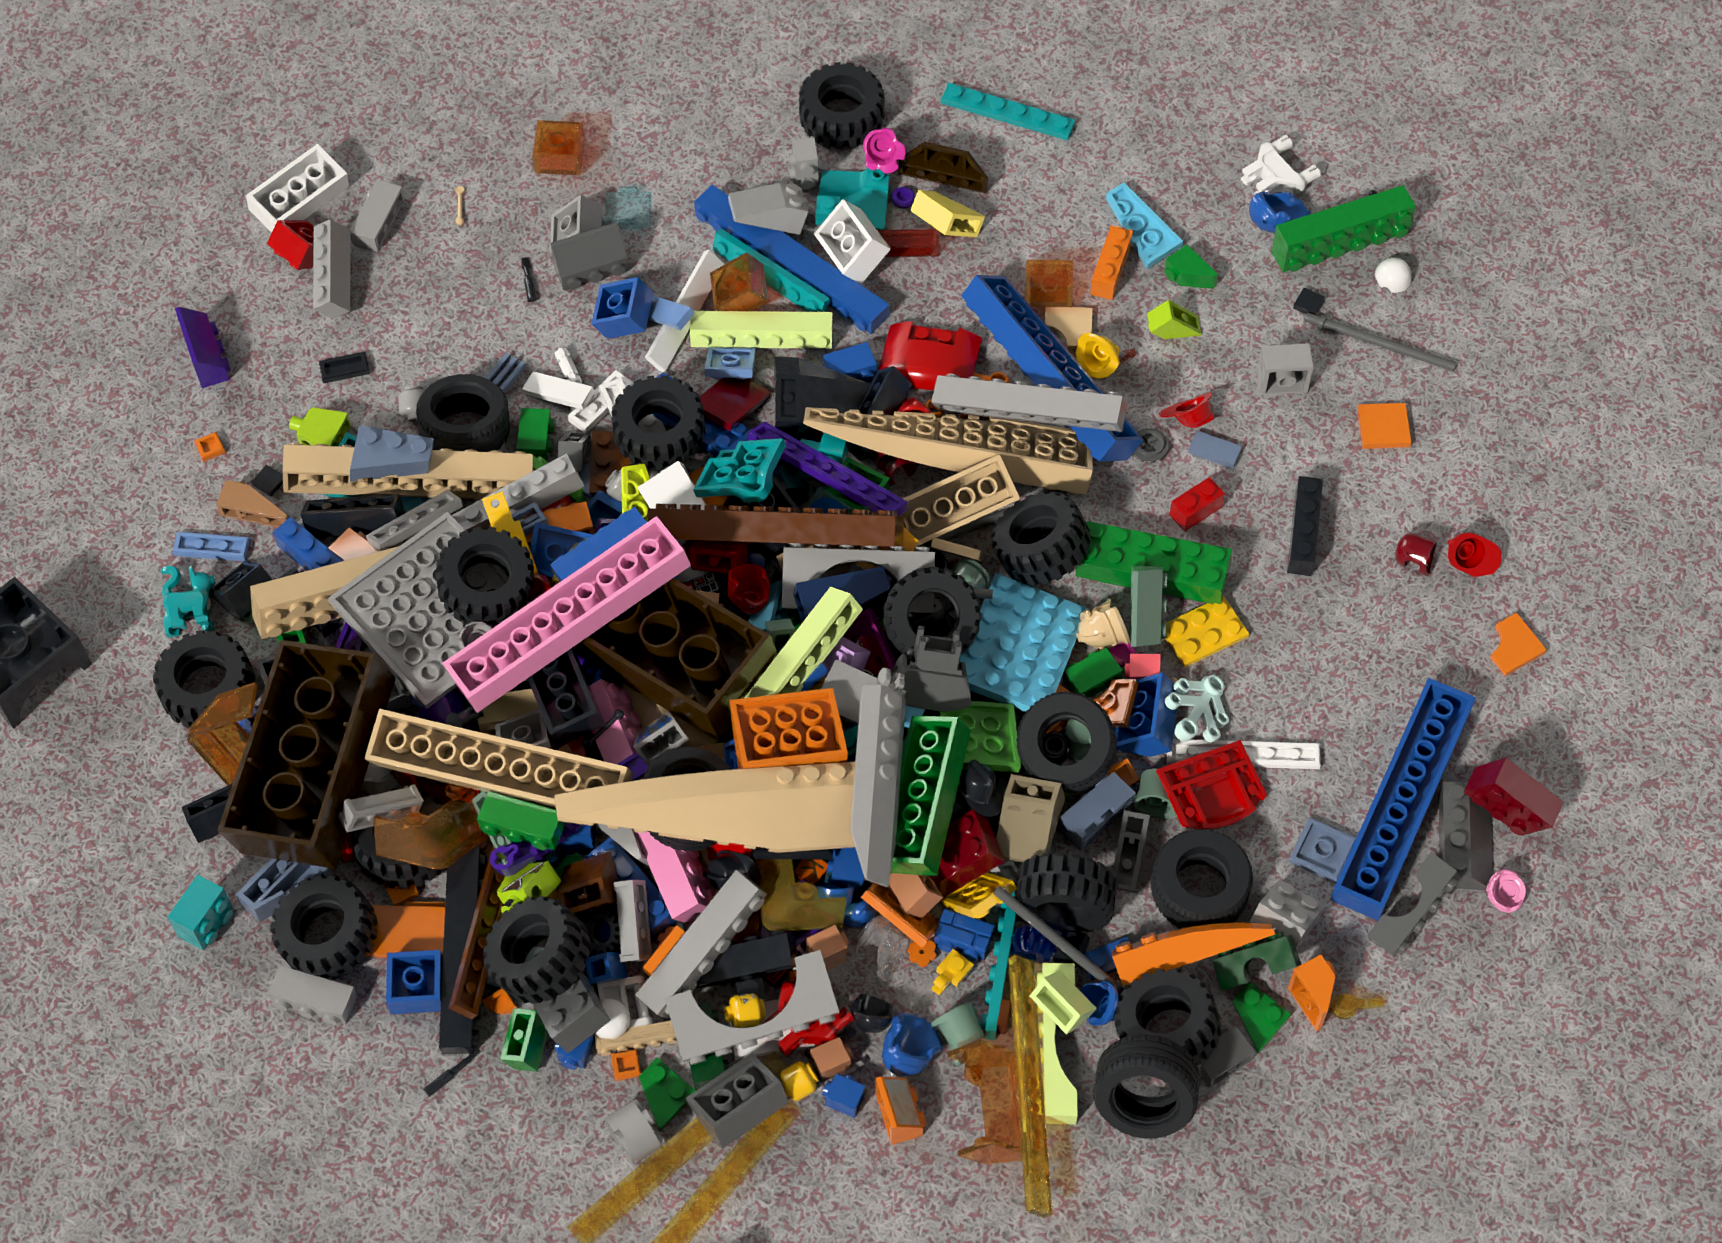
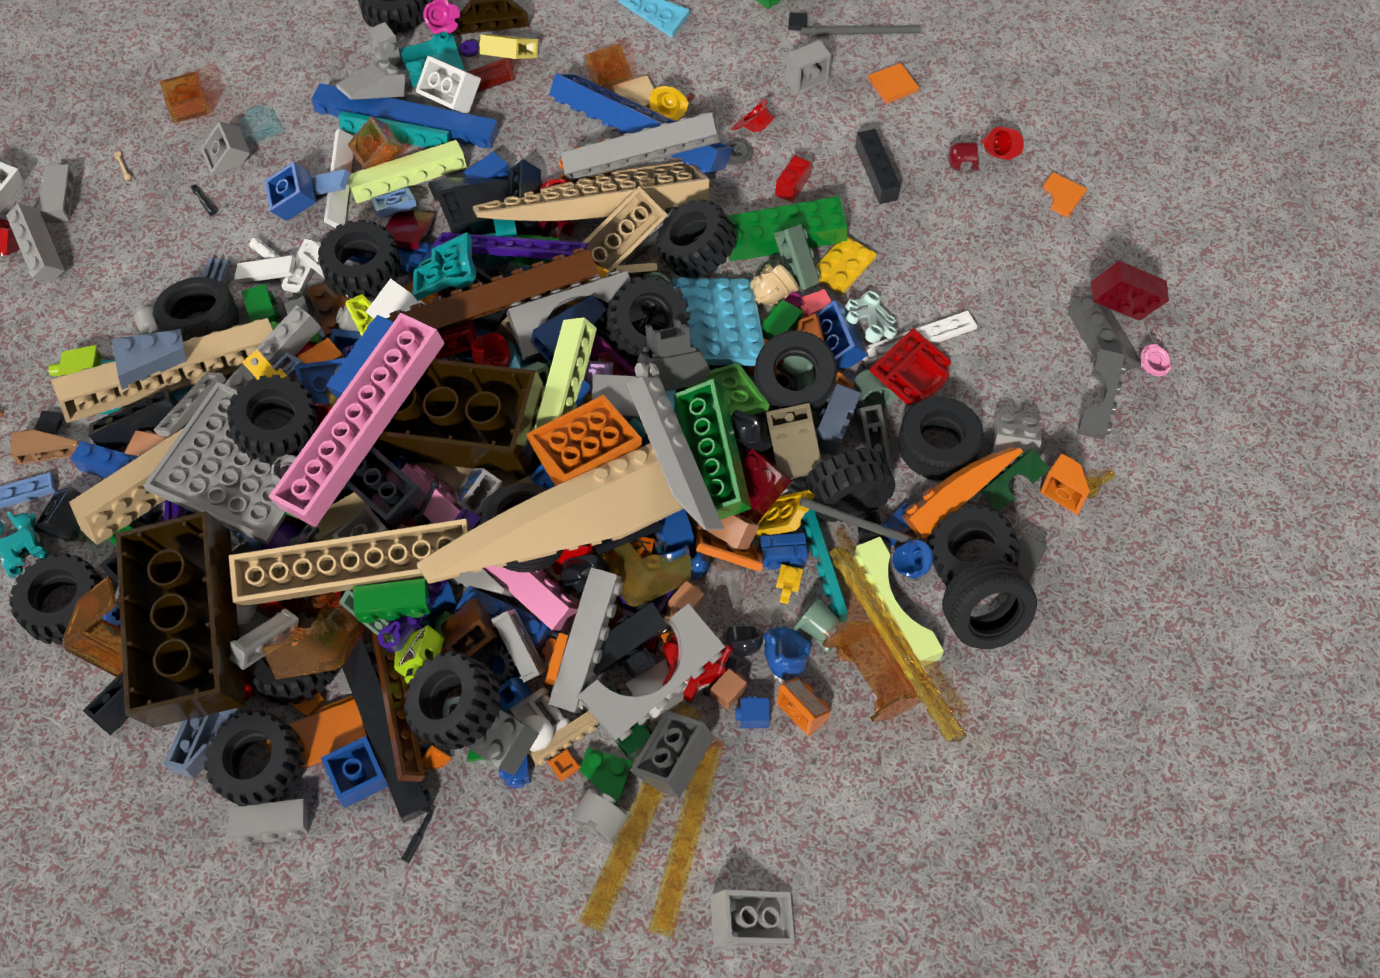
camera: 25 degrees left, 0 degrees up
(201, 913) = (137, 792): teal brick -> none
(344, 367) = (77, 314): black tile -> none
(524, 1040) = (471, 780): green brick -> none
(589, 256) = (245, 164): dark grey slope -> none
(745, 1011) = (645, 679): yellow head -> none
(799, 1080) = (713, 715): yellow head -> none
(860, 1064) = (730, 714): light grey hinge -> none
(922, 959) = (760, 583): orange plant -> none
(929, 352) = (542, 144): red slope -> none
(1004, 1015) = (847, 598): reddish brown tile -> none
(1032, 945) = (841, 535): clear blue gear -> none
(1062, 1002) = (889, 568): yellowish green brick -> none
(1111, 262) = (645, 40): orange brick -> none
(1173, 321) = (709, 64): lime slope -> none
(1189, 269) = (704, 26): green slope -> none
(1214, 449) = (784, 139): sand blue tile -> none
(1259, 1015) = (1031, 519): green wing -> none
(1322, 850) = (1010, 384): sand blue tile -> none
(1402, 799) = (1050, 326): blue brick -> none

